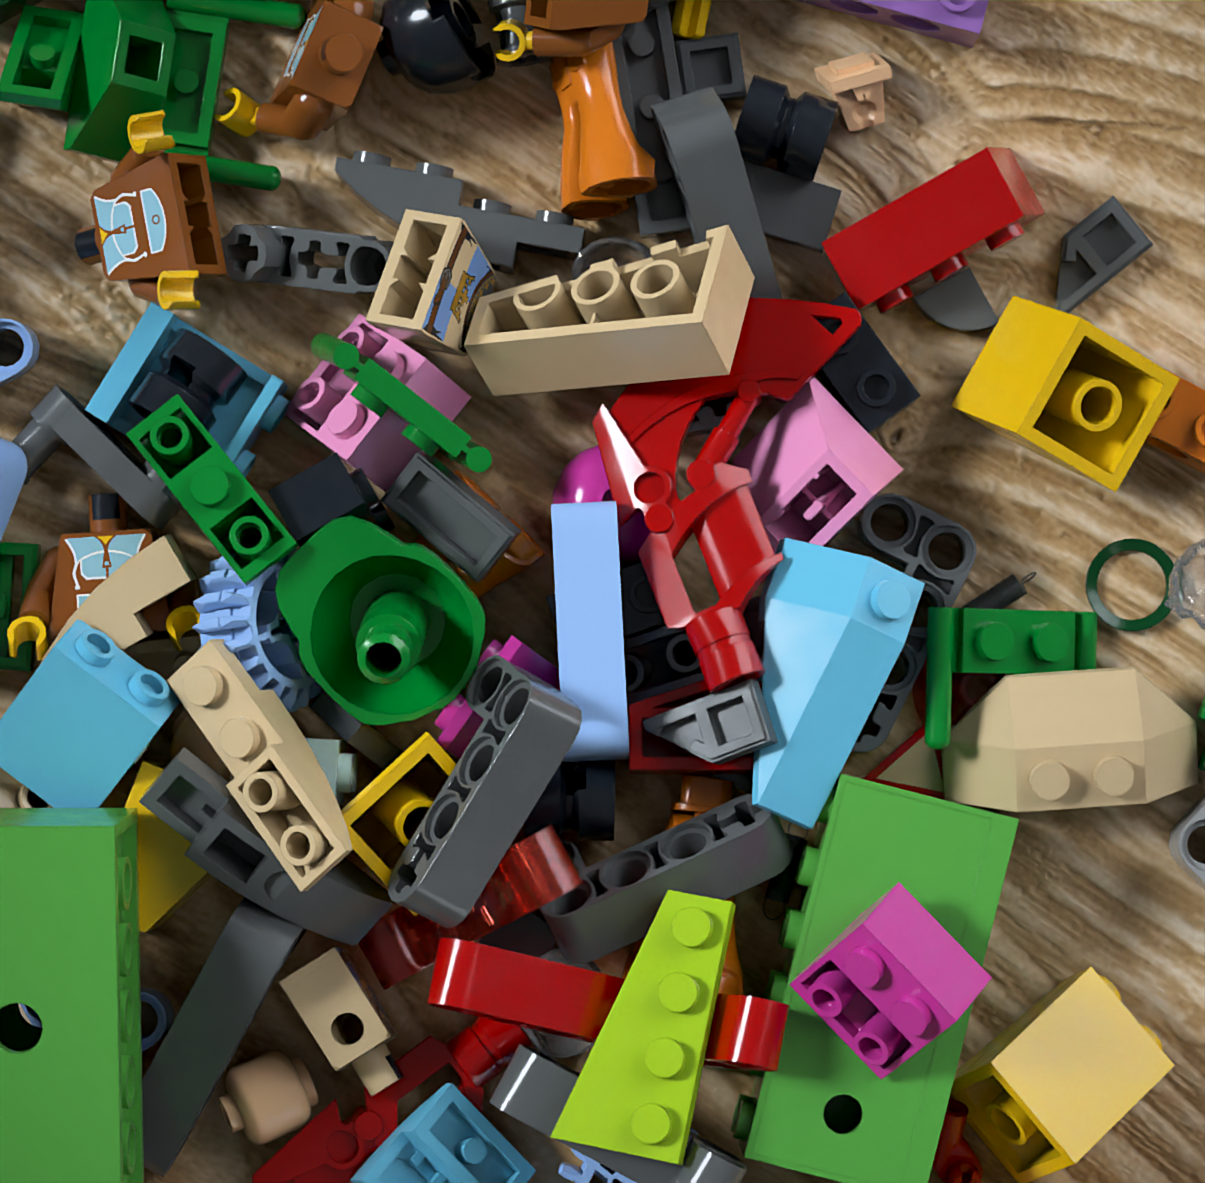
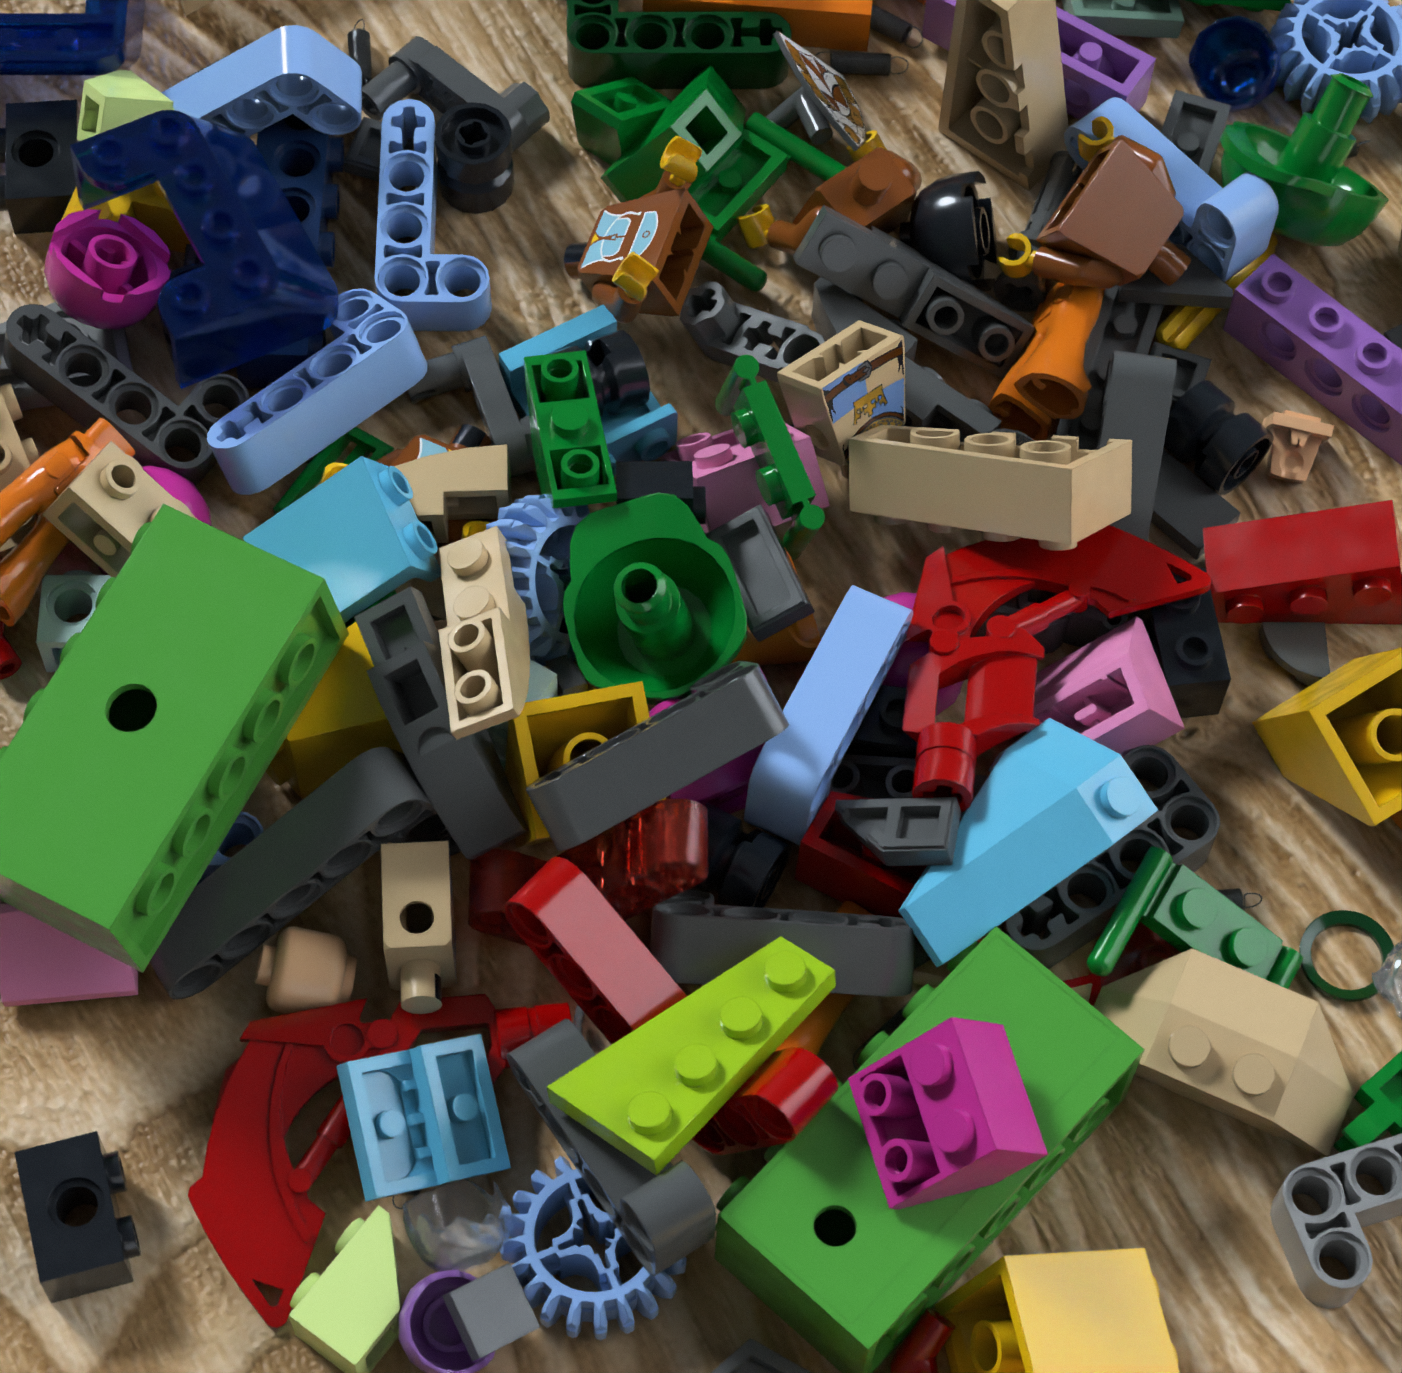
camera: 30 degrees right, 25 degrees down
(421, 122) = (914, 291): none -> dark grey slope

